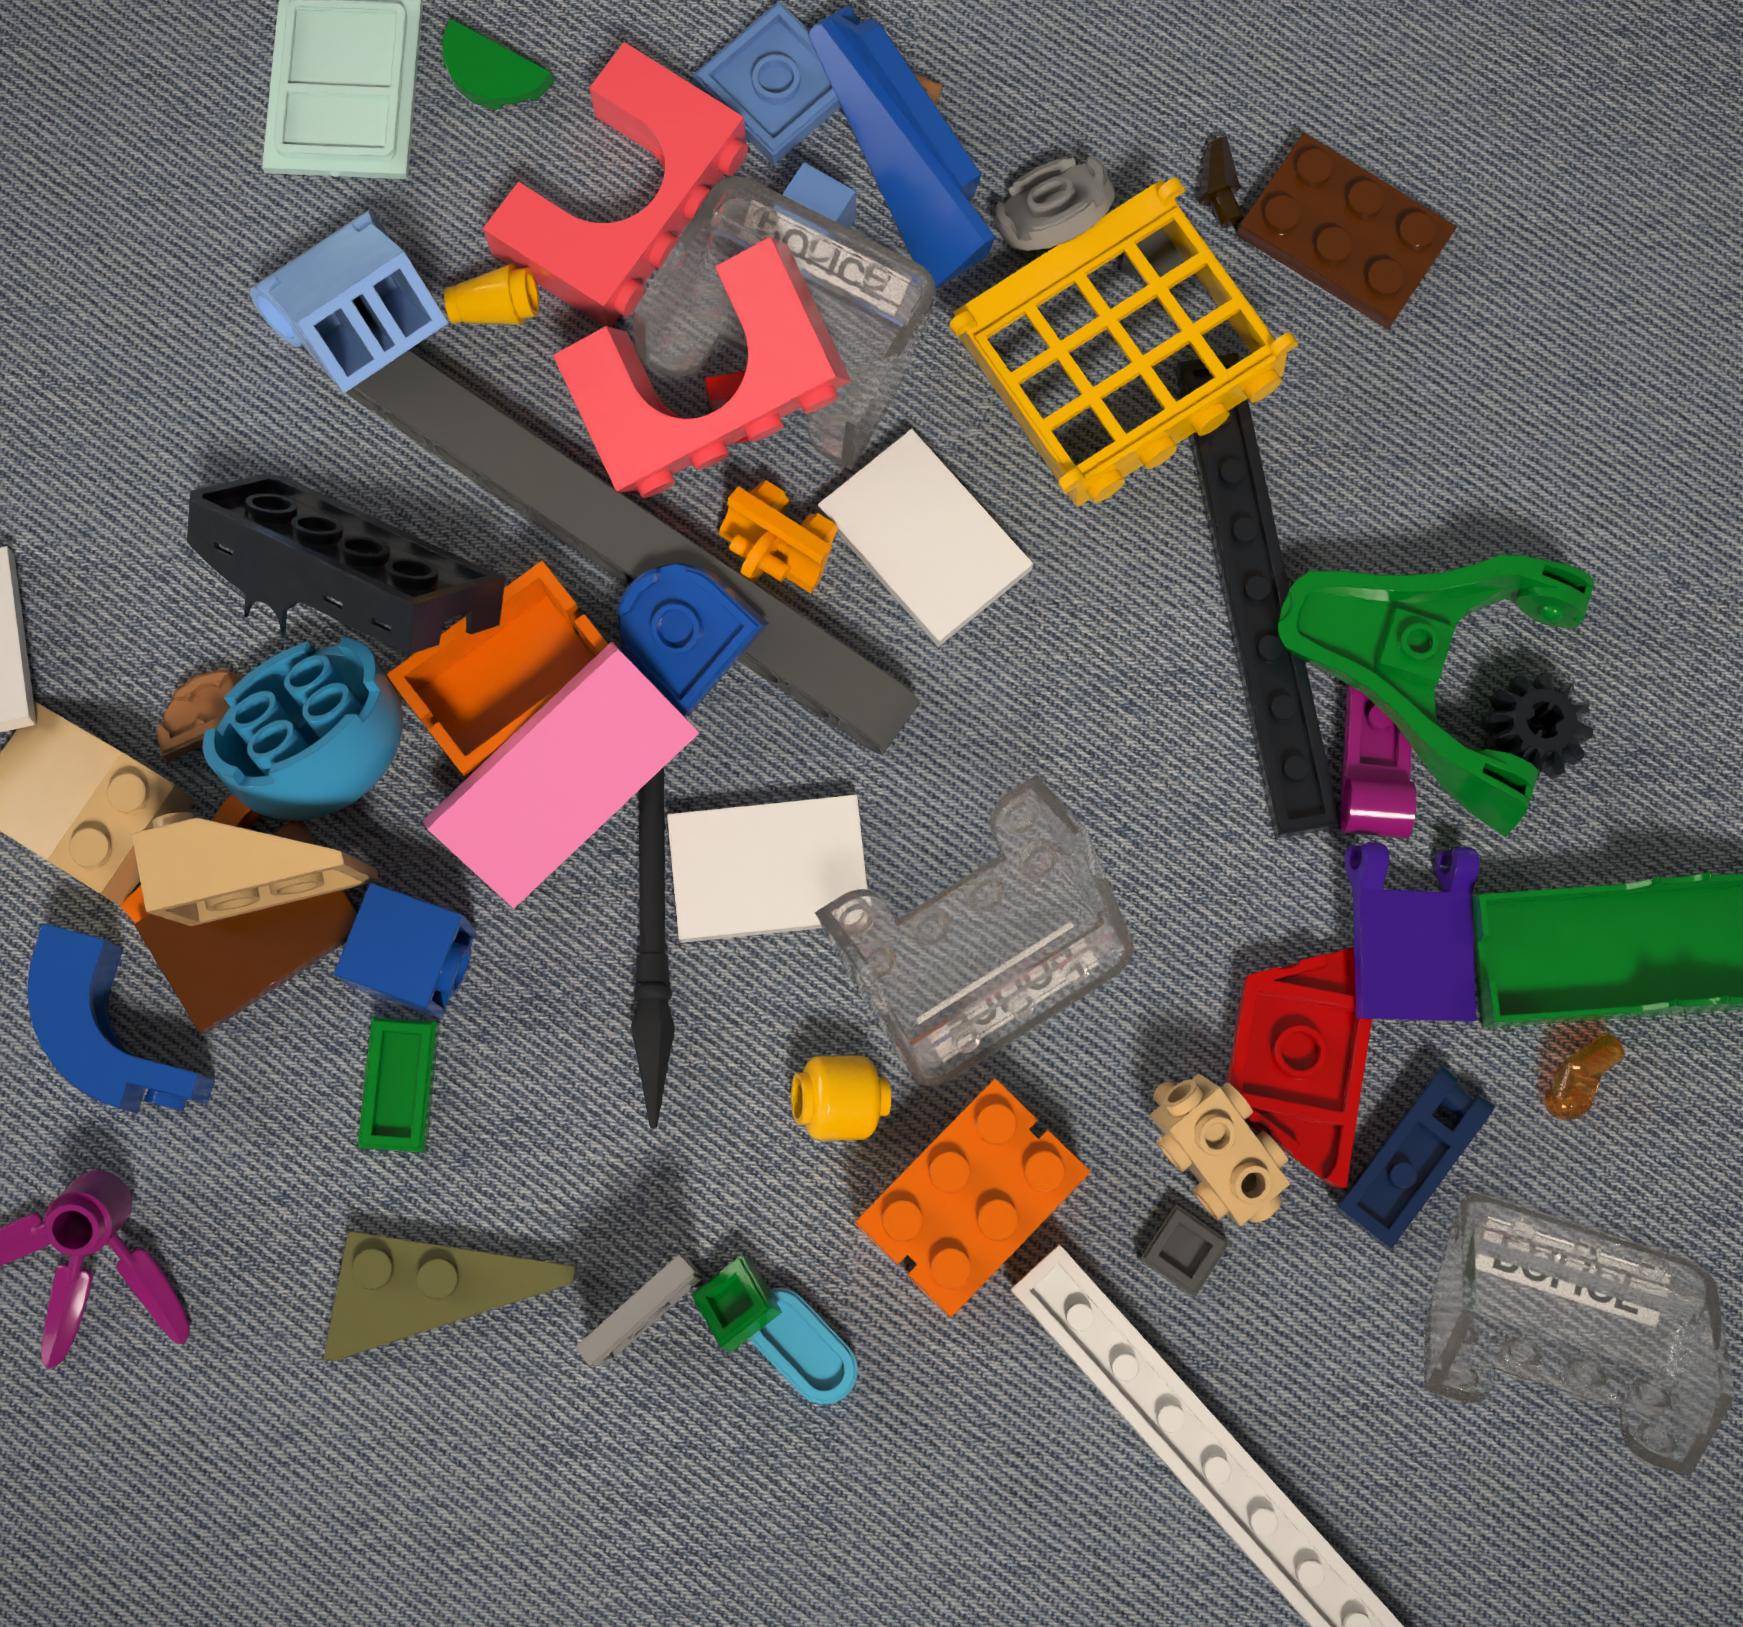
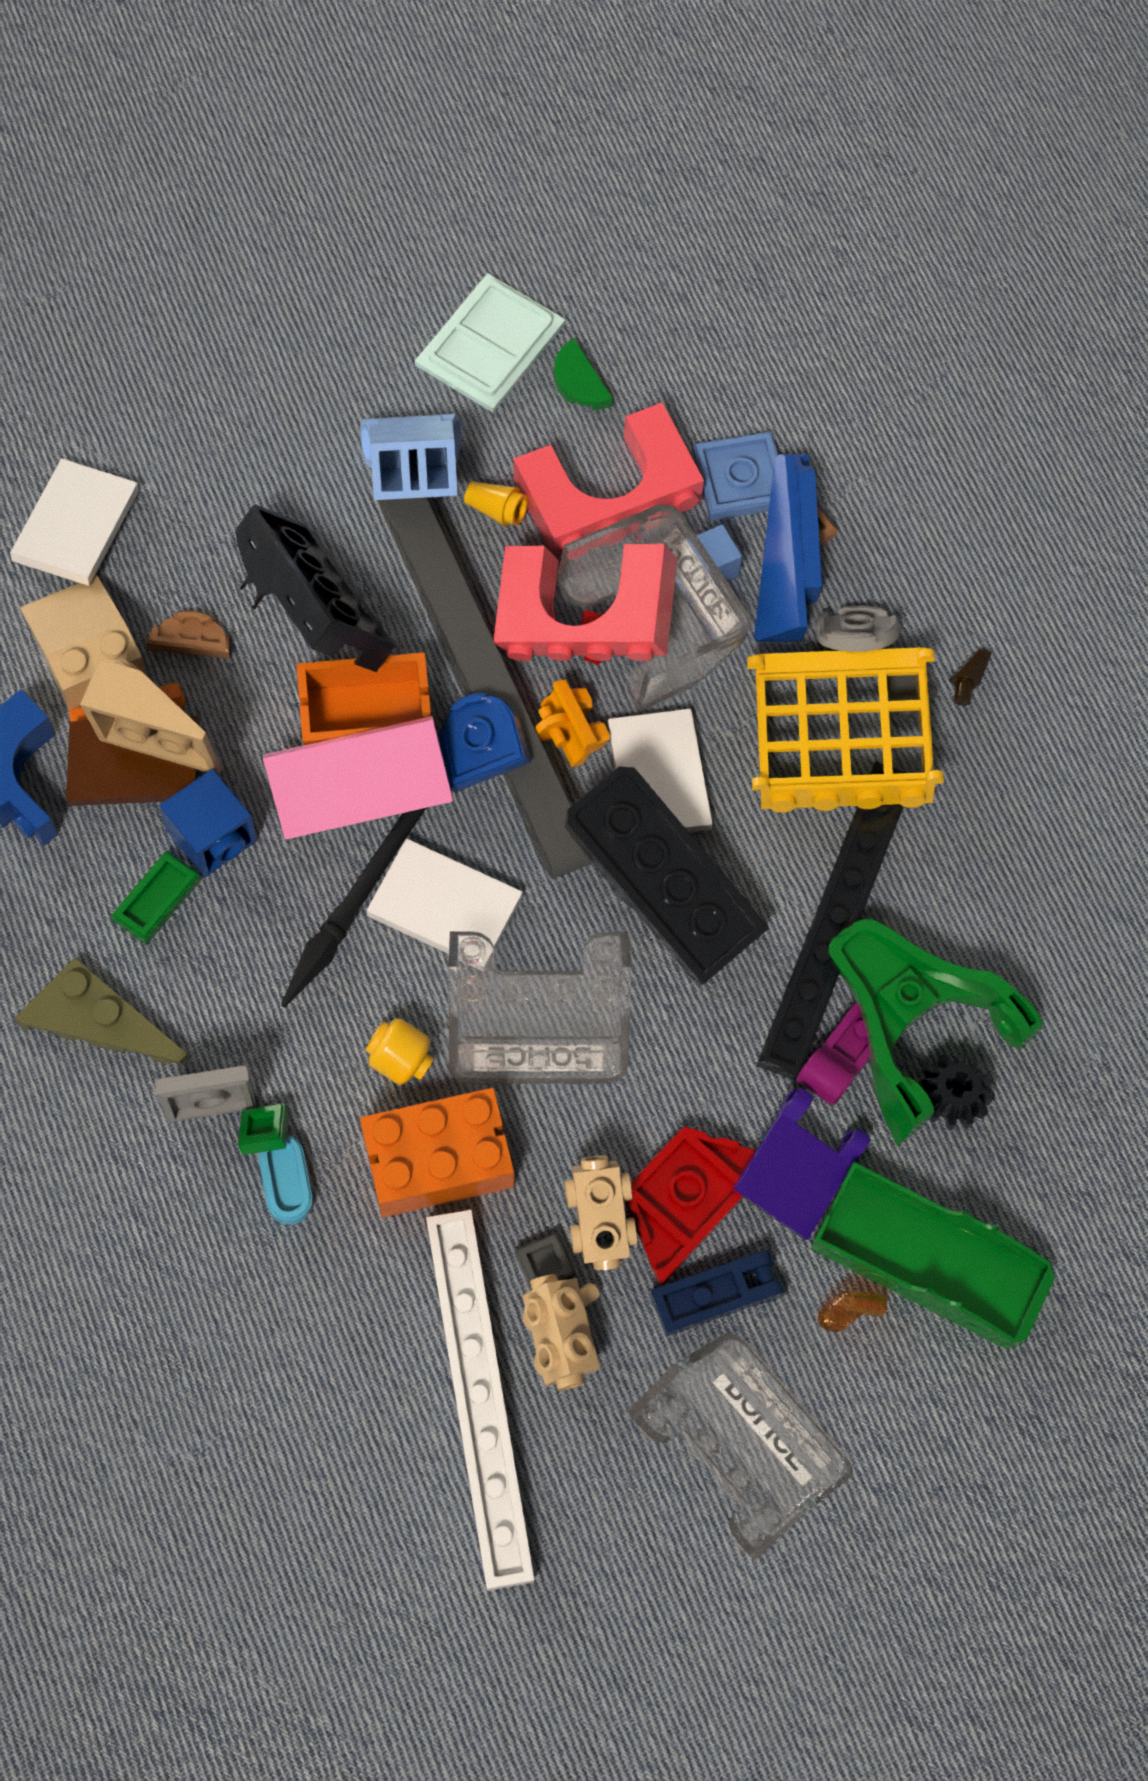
camera: 30 degrees right, 10 degrees down
(307, 731) = (233, 672): dark azure cylinder -> none
(1025, 670) = (663, 873): none -> black piece
(1267, 1328) = (561, 1330): none -> tan brick
(1346, 230) = (1029, 746): reddish brown plate -> none

